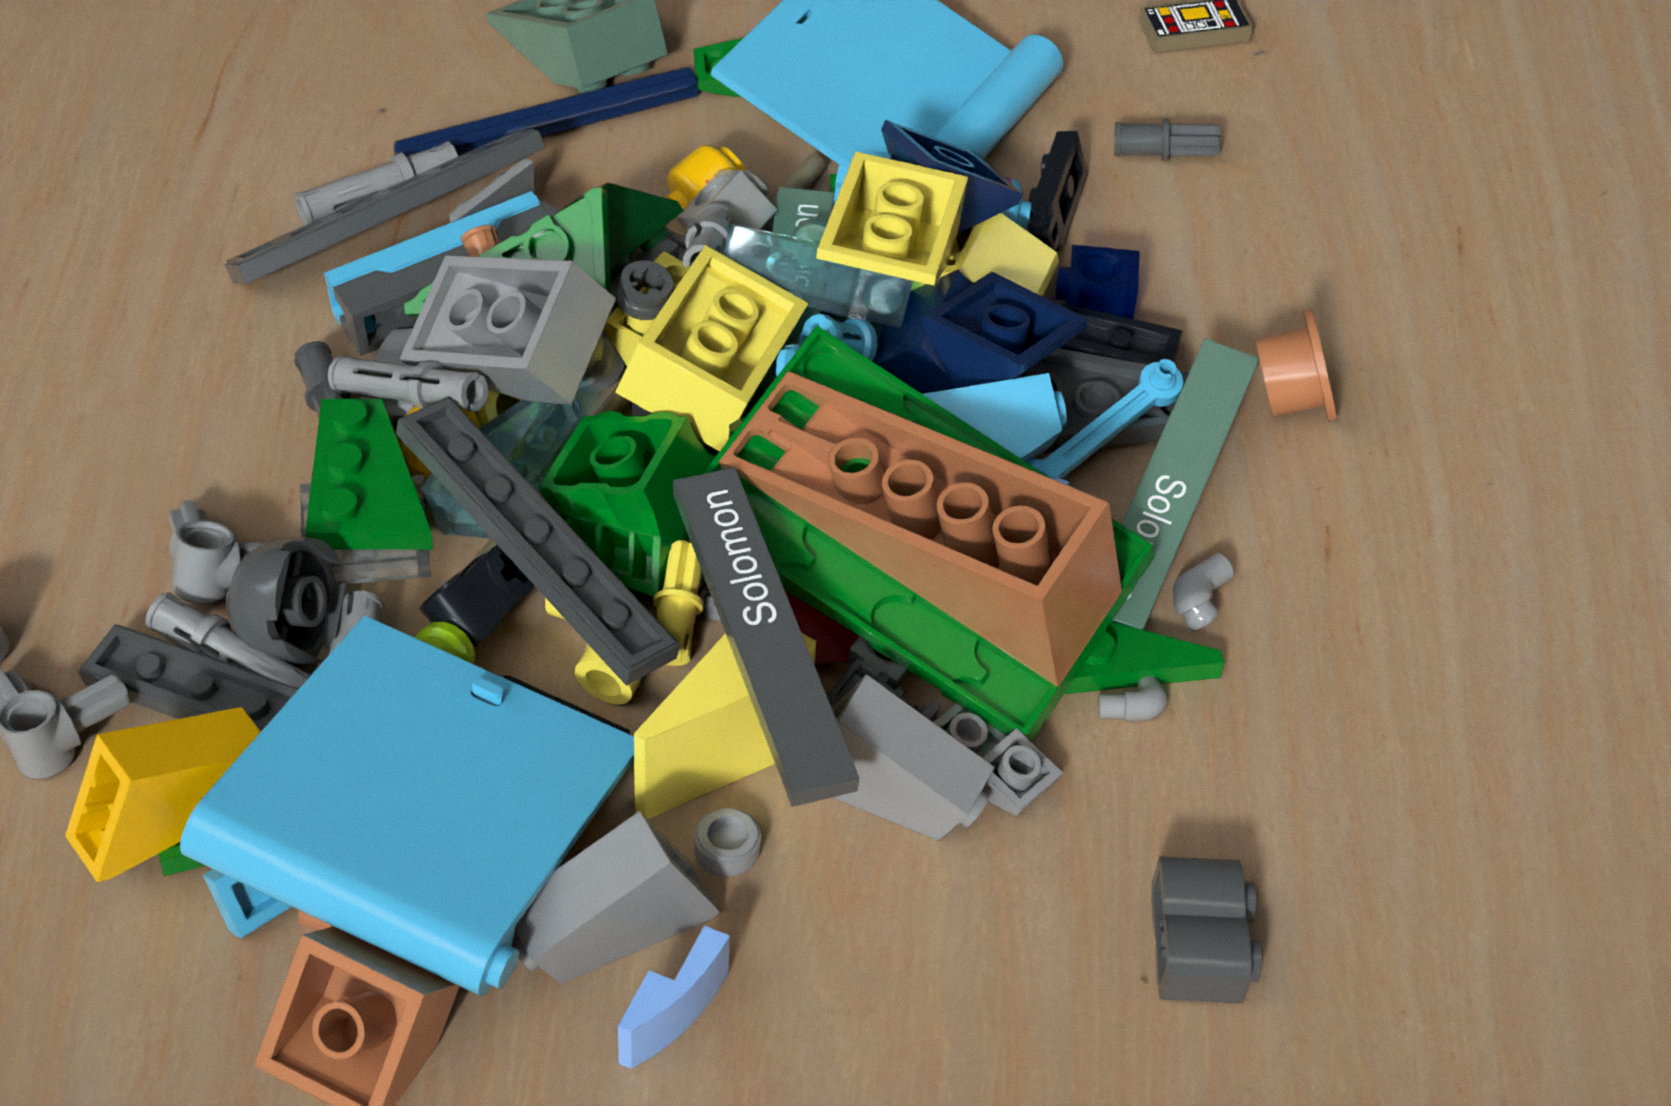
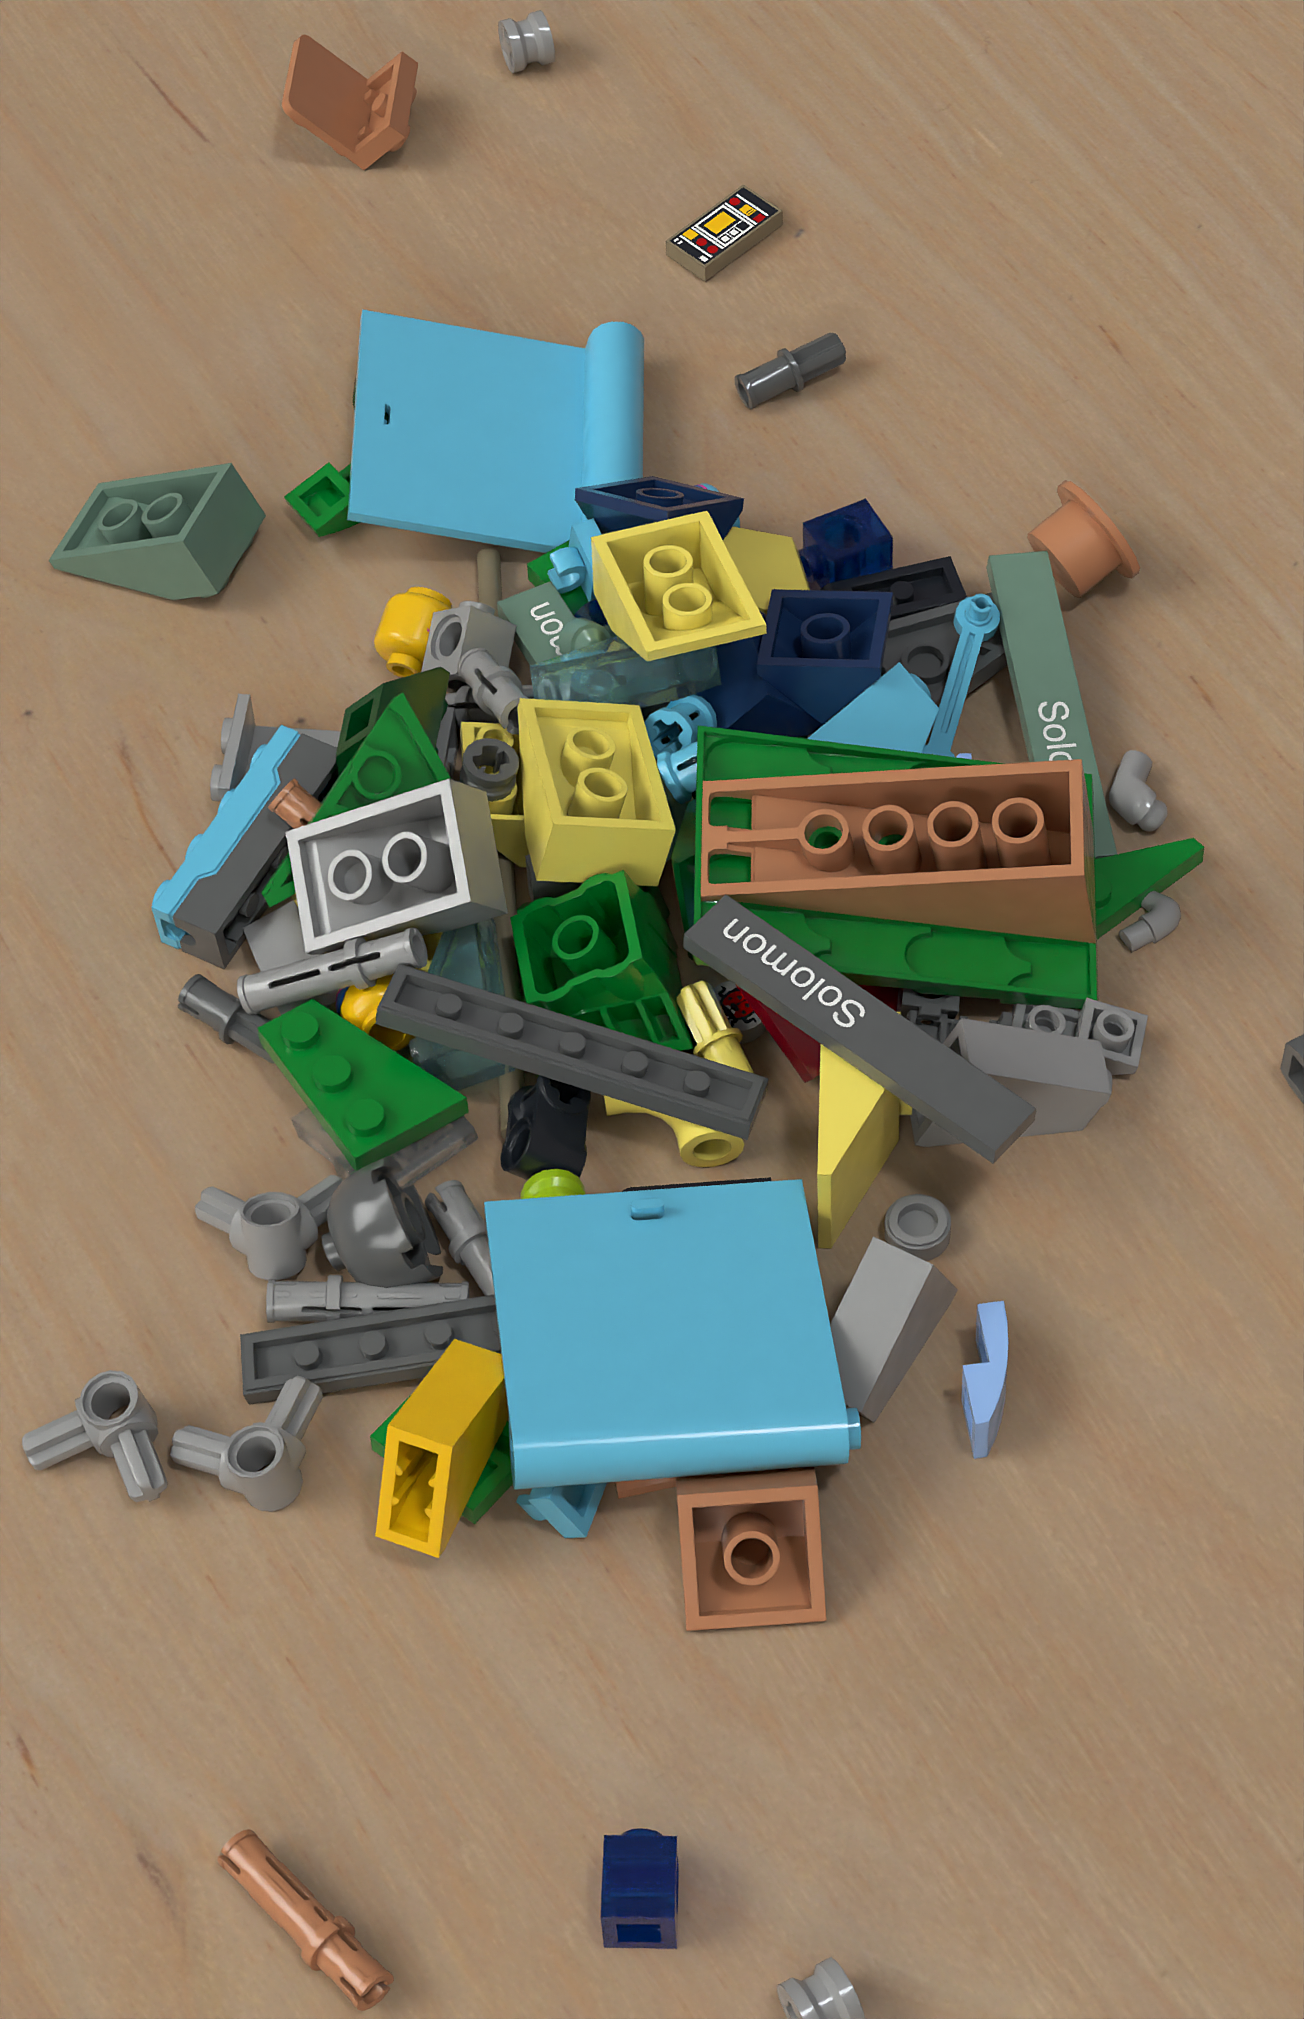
camera: 25 degrees left, 5 degrees up
(345, 191) = (116, 773): light grey pin -> none
(383, 205) = (137, 812): dark grey tile -> none
(562, 113) = (200, 643): dark blue axle -> none
(1058, 190) = (727, 453): black hinge -> none

